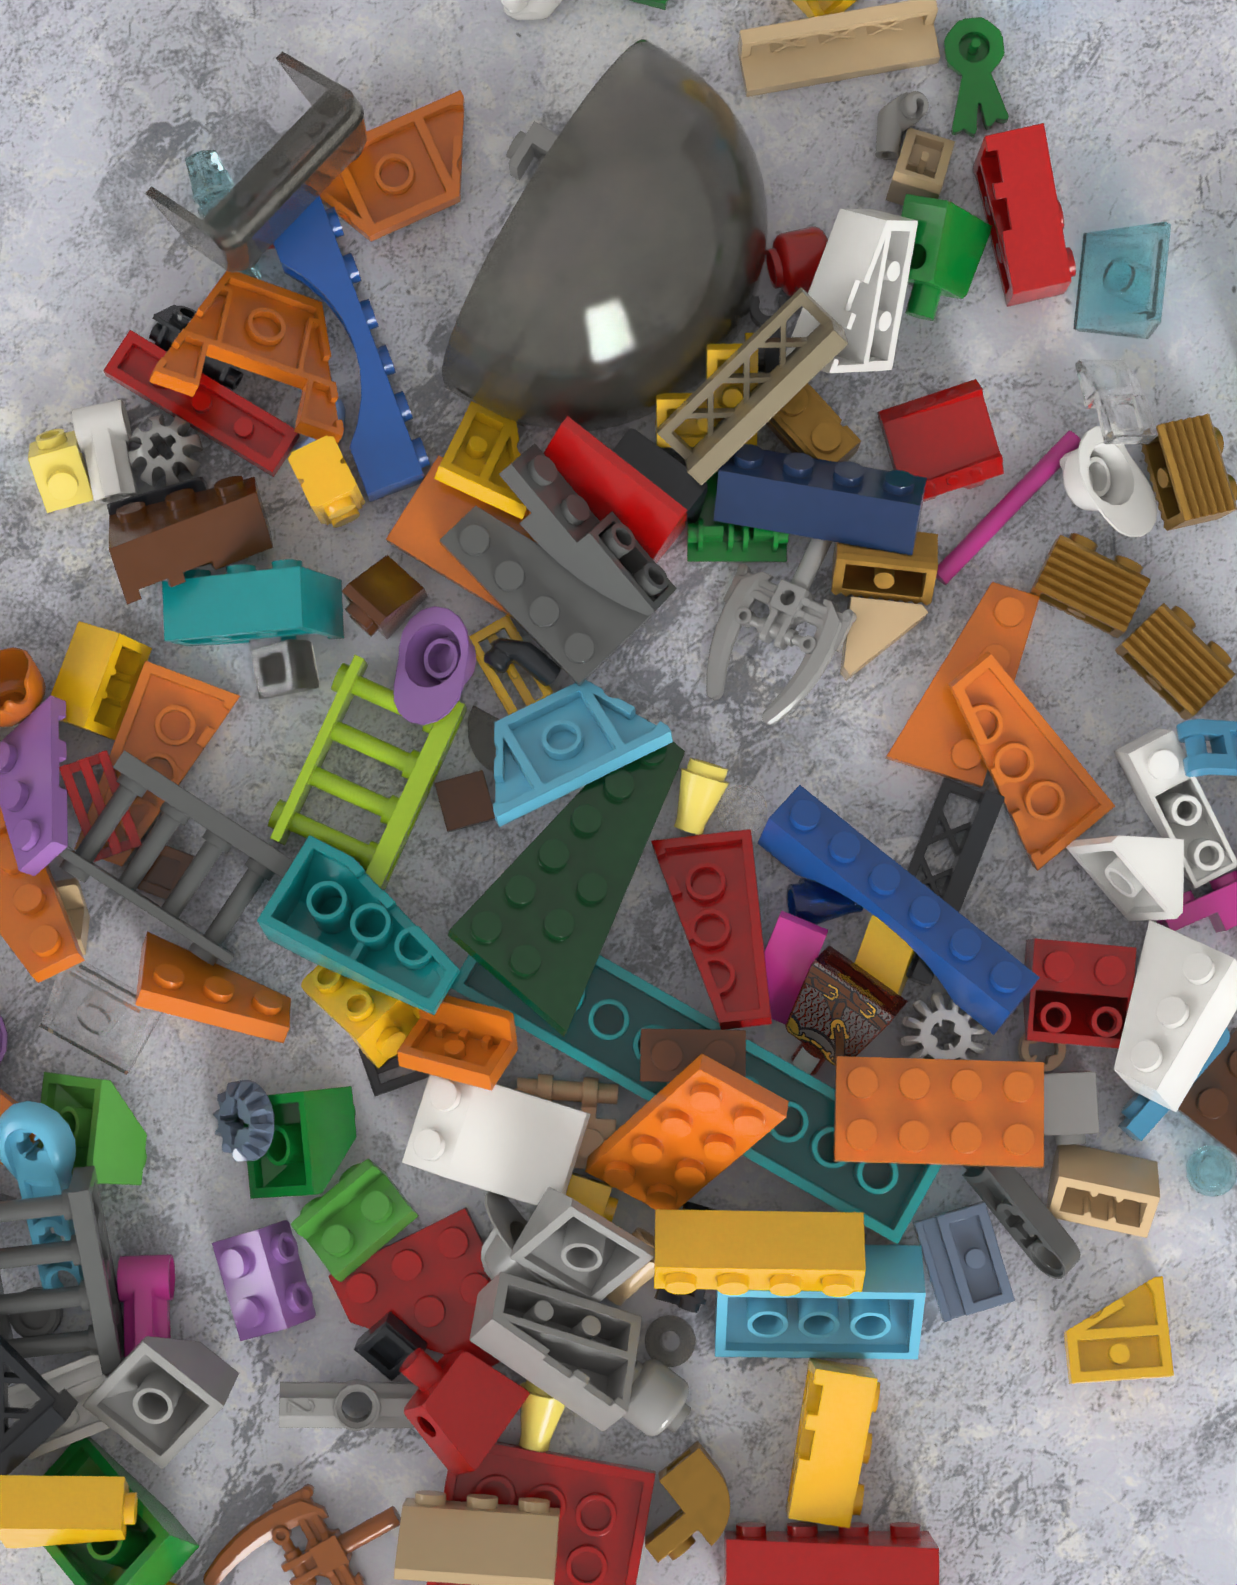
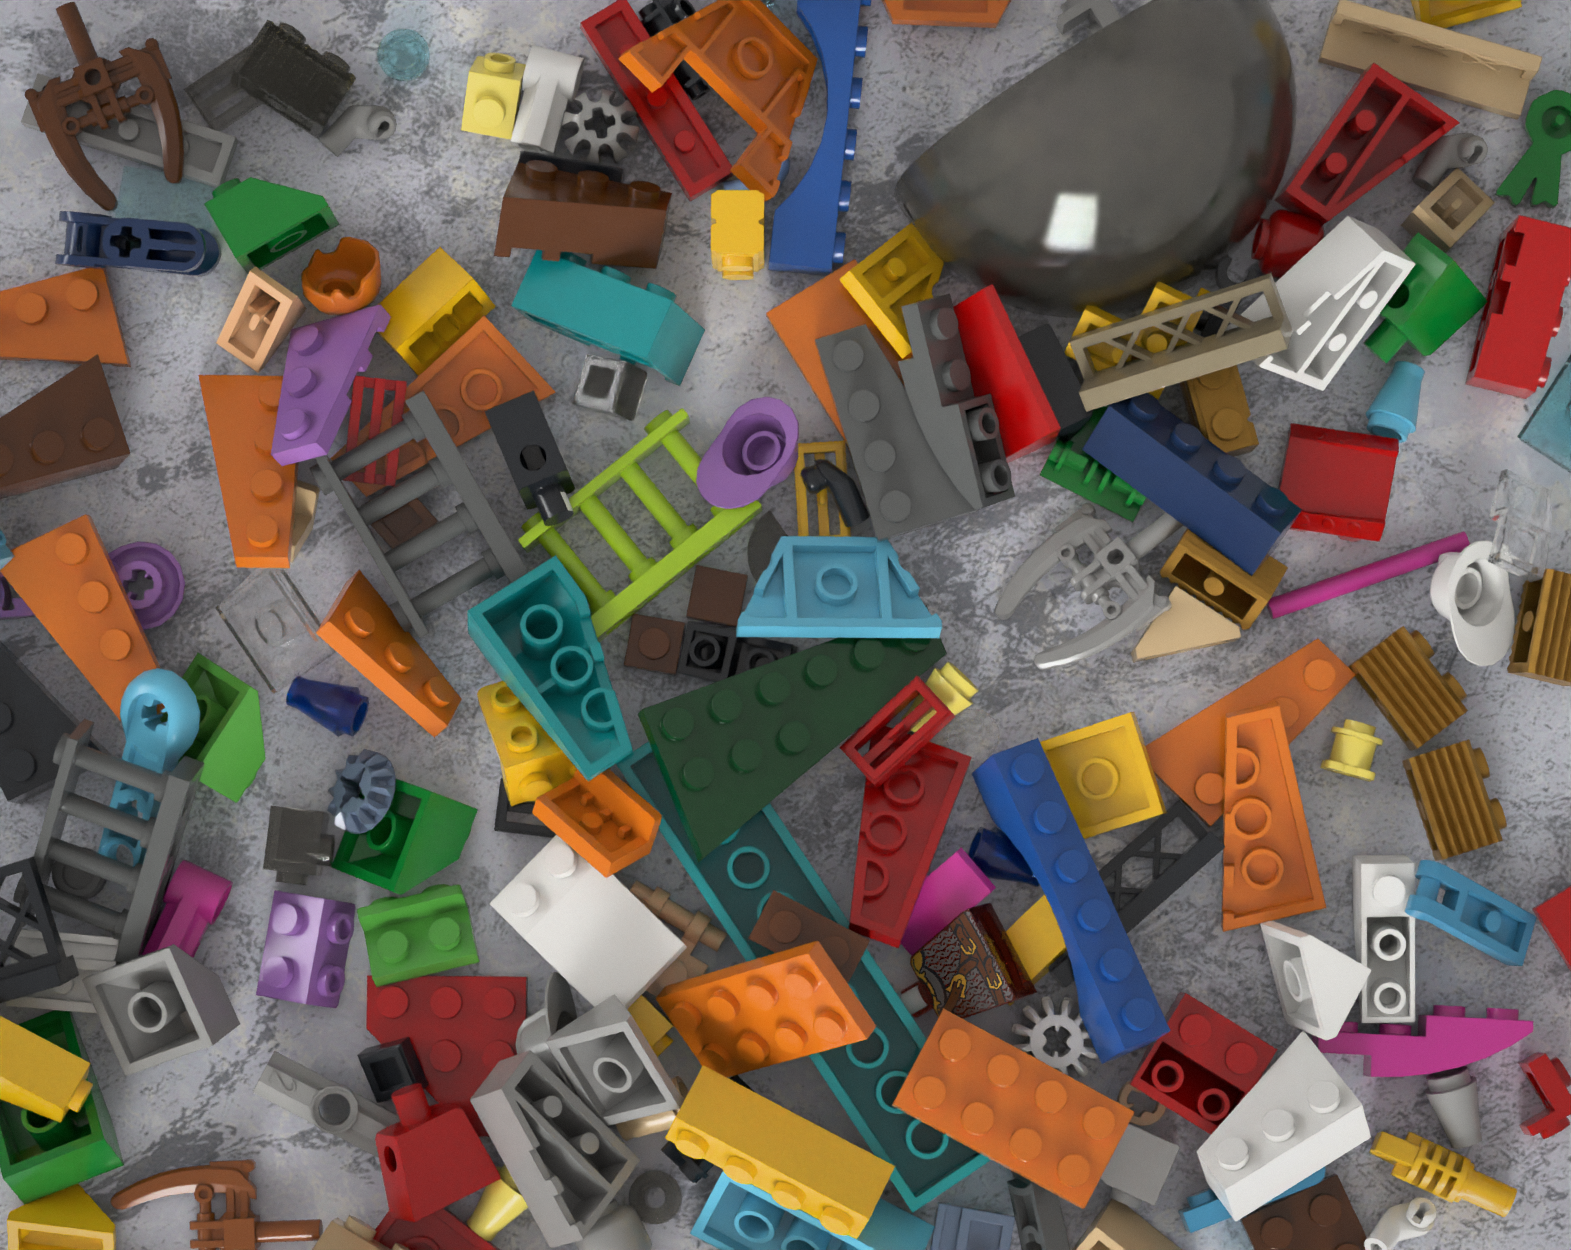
camera: 25 degrees right, 0 degrees up
(179, 1060) = (332, 705): none -> clear blue cone
(211, 1194) = (298, 844): none -> clear smoke brick
(247, 760) = (533, 457): none -> black torso
(383, 597) = (735, 367): reddish brown slope -> none
(432, 868) = (654, 644): none -> reddish brown plate
(492, 849) = (718, 654): none -> black slope
(694, 847) = (910, 746): none -> red tile
(820, 143) = (1362, 144): none -> red wedge
(872, 787) = (1105, 775): none -> yellow plate
(959, 350) = (1397, 403): none -> medium azure cone
(1070, 662) = (1353, 750): none -> light yellow brick

